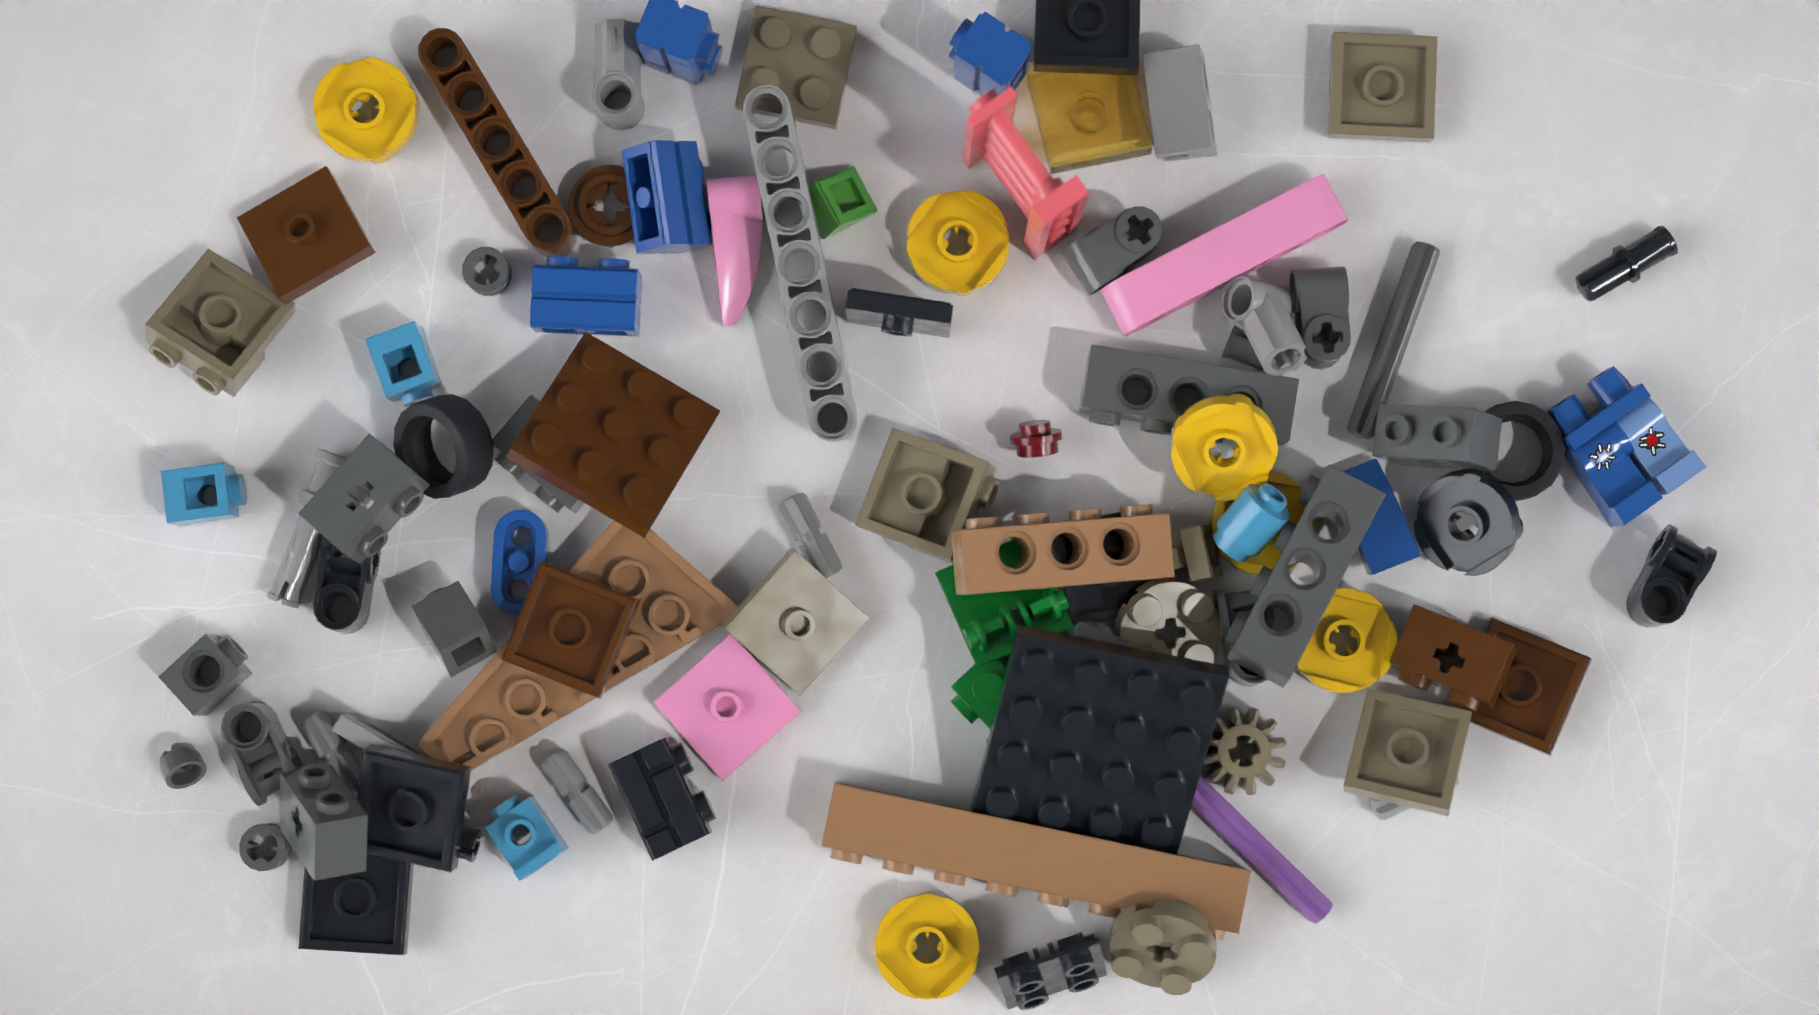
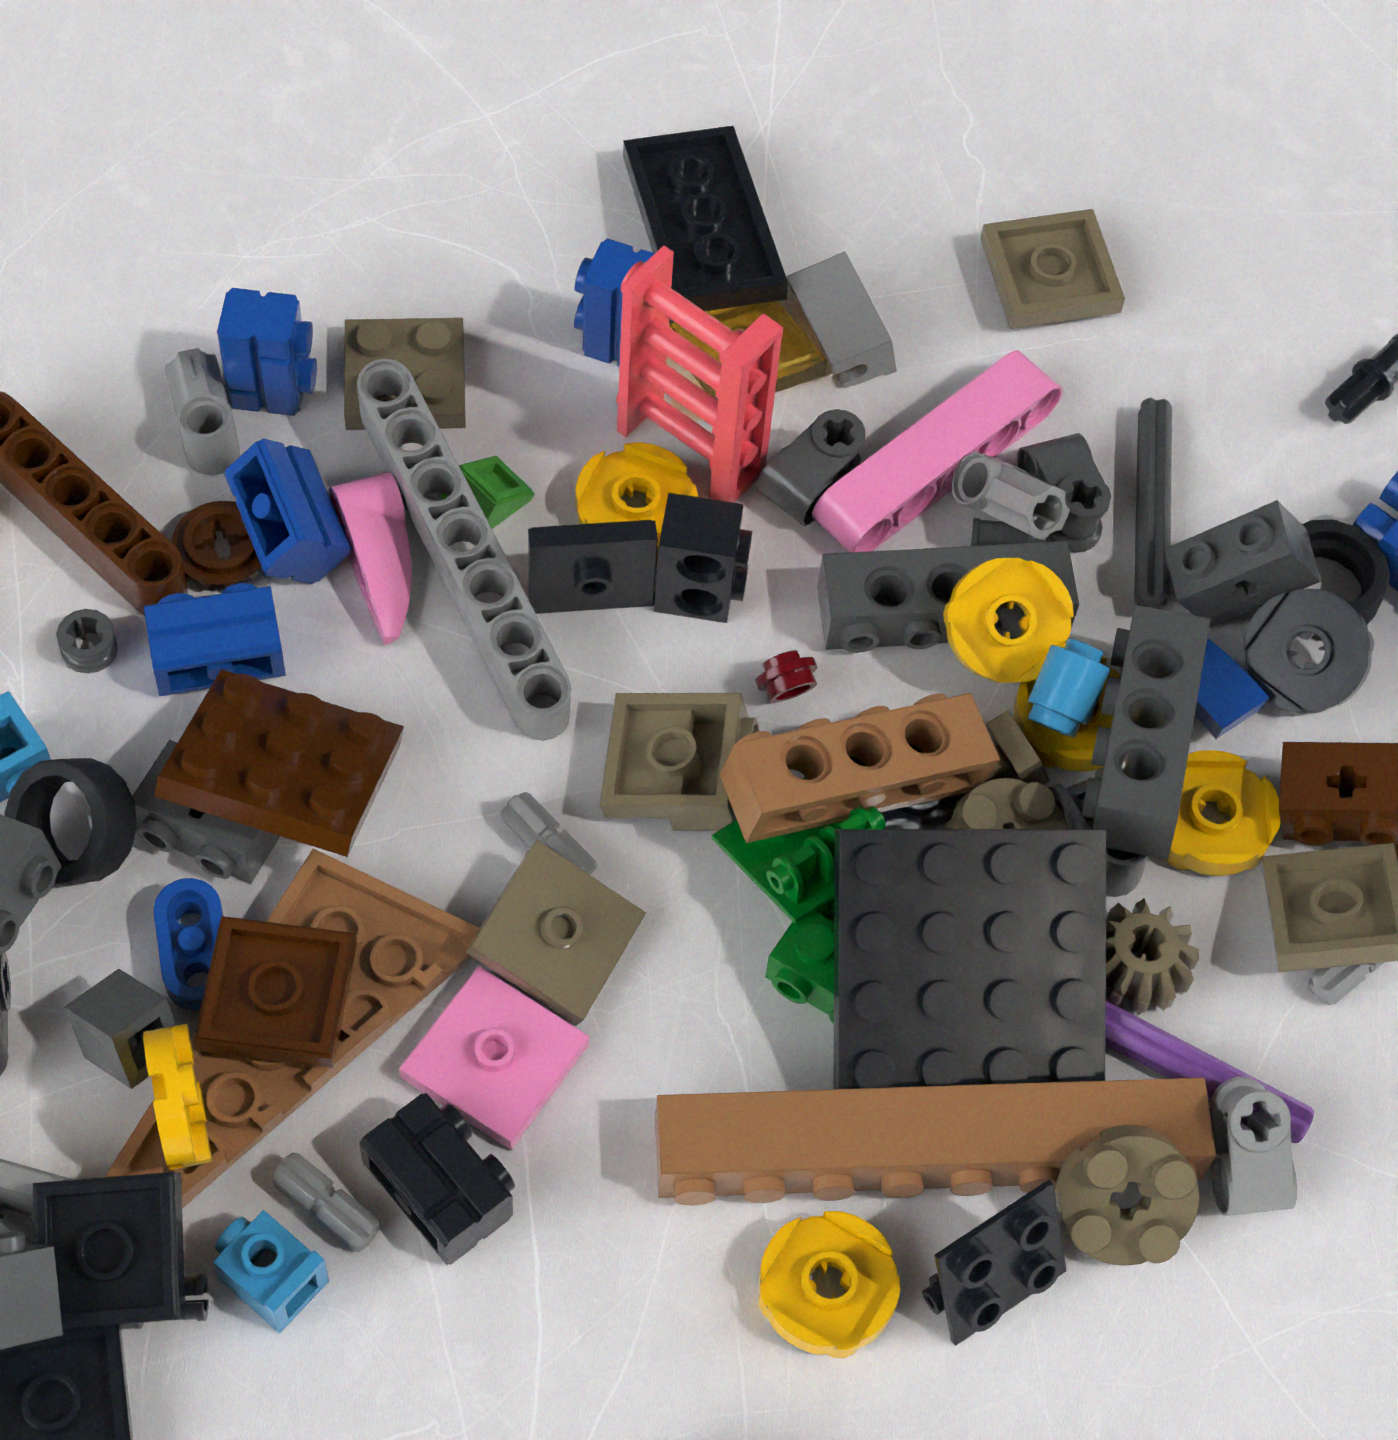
camera: 20 degrees left, 25 degrees down
(477, 705) = (177, 1097): none -> yellow plate
(991, 325) = (701, 558): none -> black brick
(1270, 927) = (1252, 1160): none -> light grey piece

